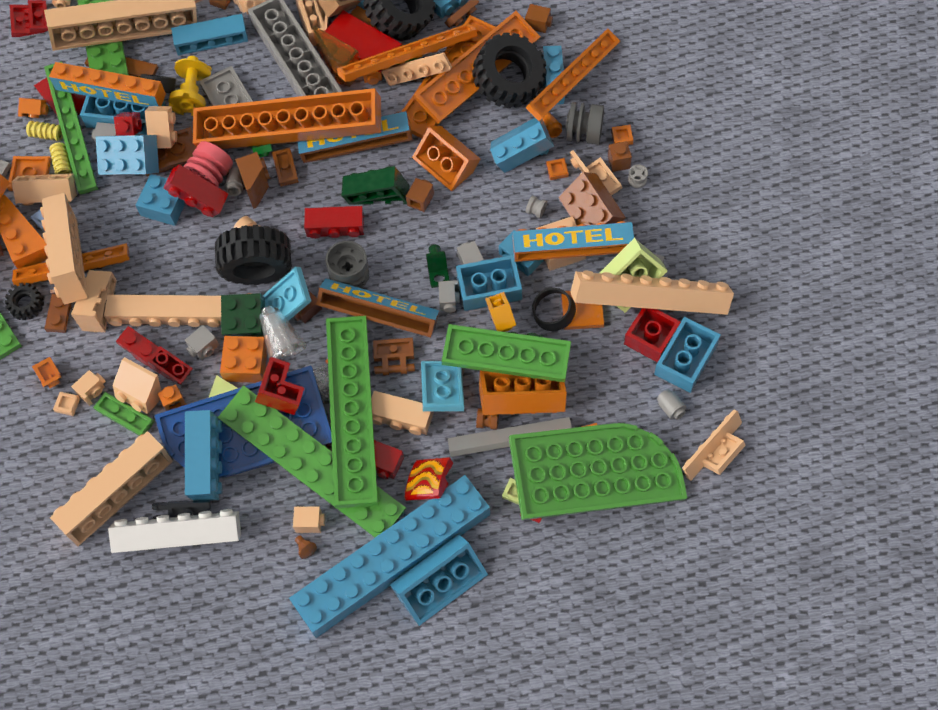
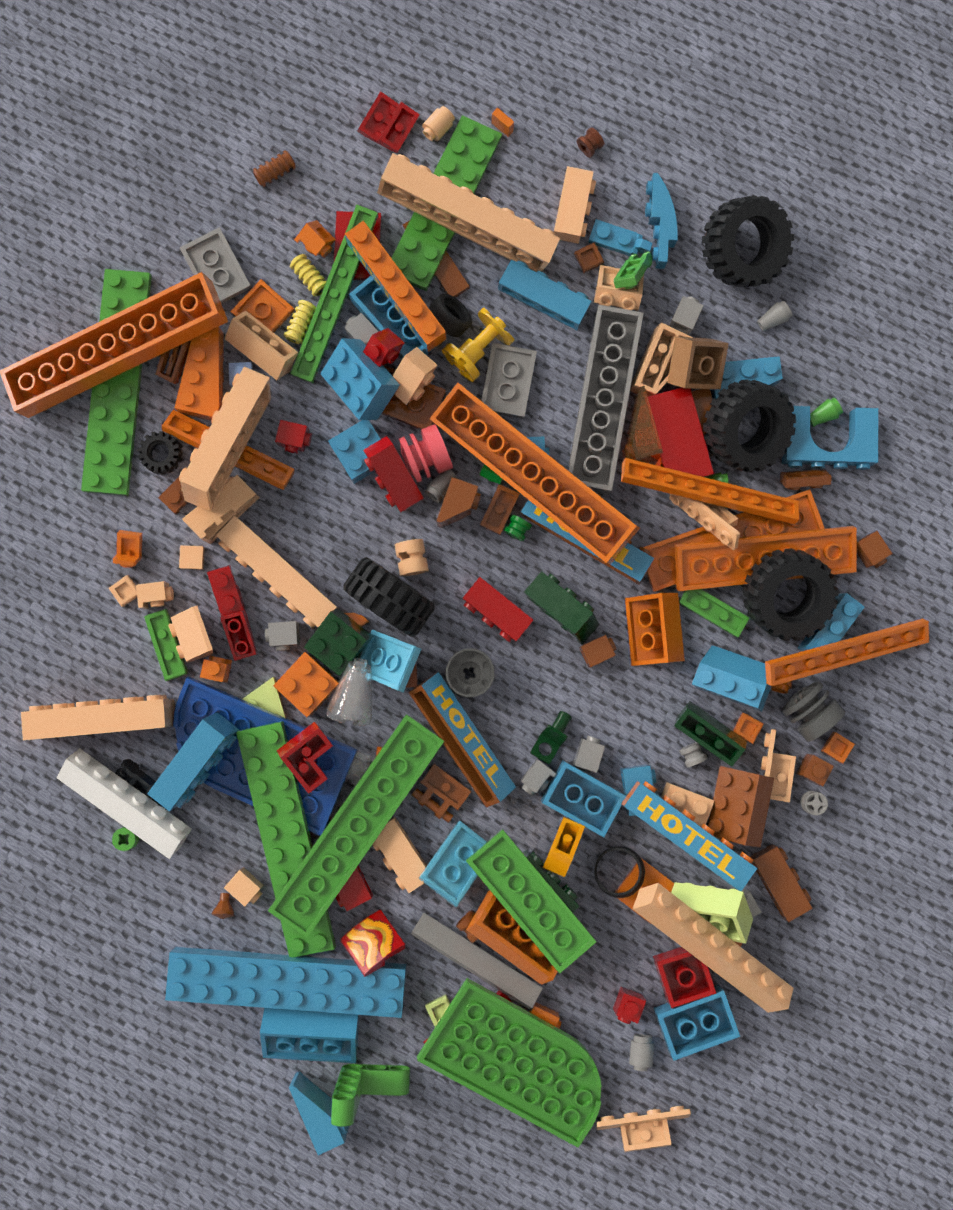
camera: 30 degrees right, 20 degrees up
(98, 348) = (191, 557): none -> light nougat tile
(109, 225) = (293, 436): none -> red brick
(199, 560) = (127, 836): none -> bright green wheel
(306, 167) = (517, 528): none -> green wheel
(473, 121) = (714, 611): none -> bright green plate
(492, 619) = (316, 1114): none -> dark azure slope
(499, 573) = (368, 1080): none -> bright green beam
(535, 184) = (710, 733): none -> dark green brick
(635, 381) = (629, 1005): none -> red brick
(662, 235) = (781, 882): none -> dark orange brick

